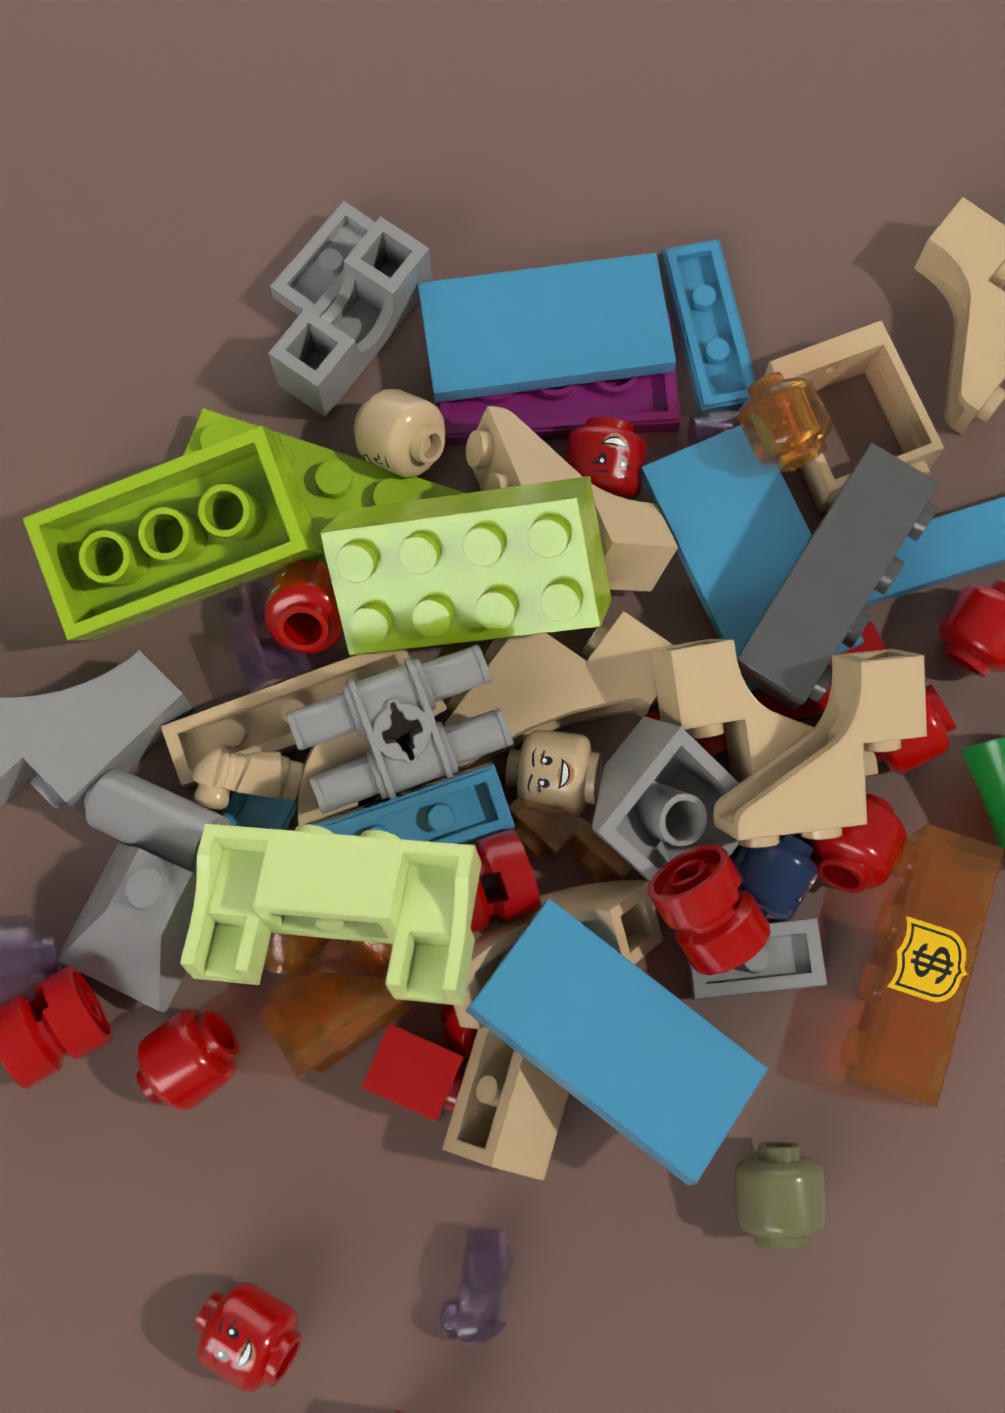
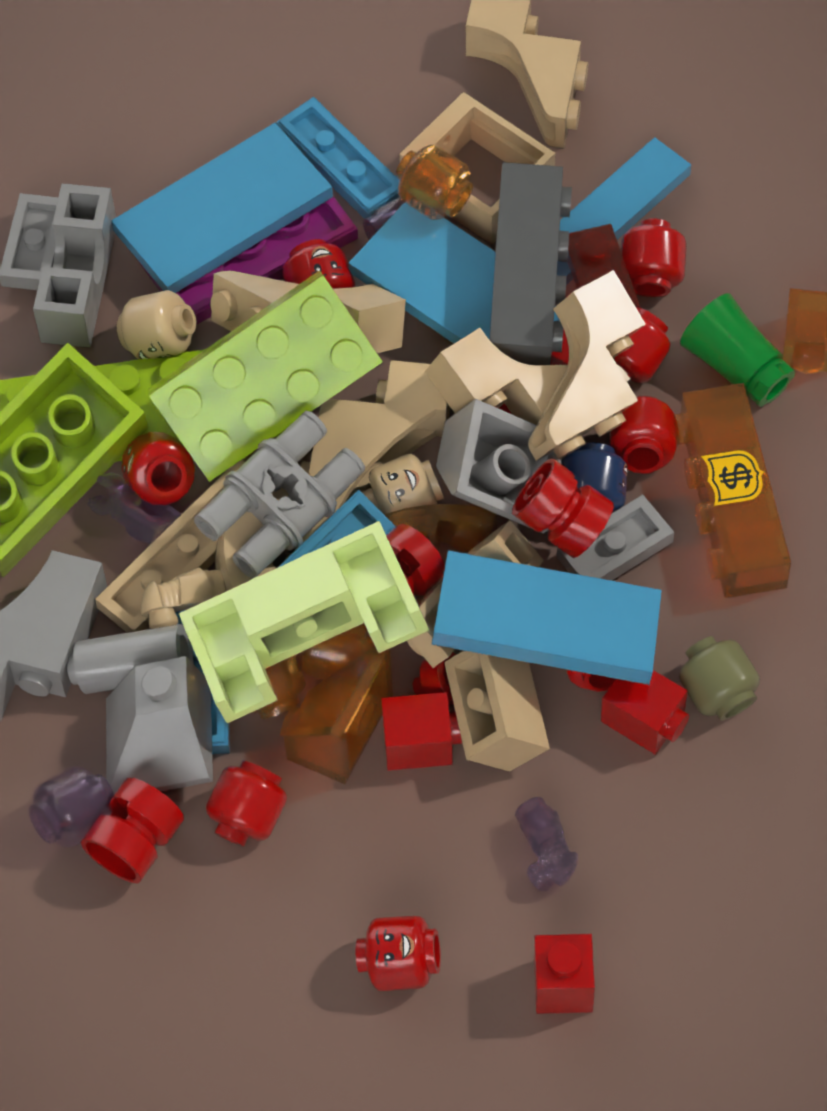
camera: 25 degrees left, 15 degrees down
(676, 1205) = (646, 711): none -> red brick
(920, 611) = (595, 254): none -> clear red plate

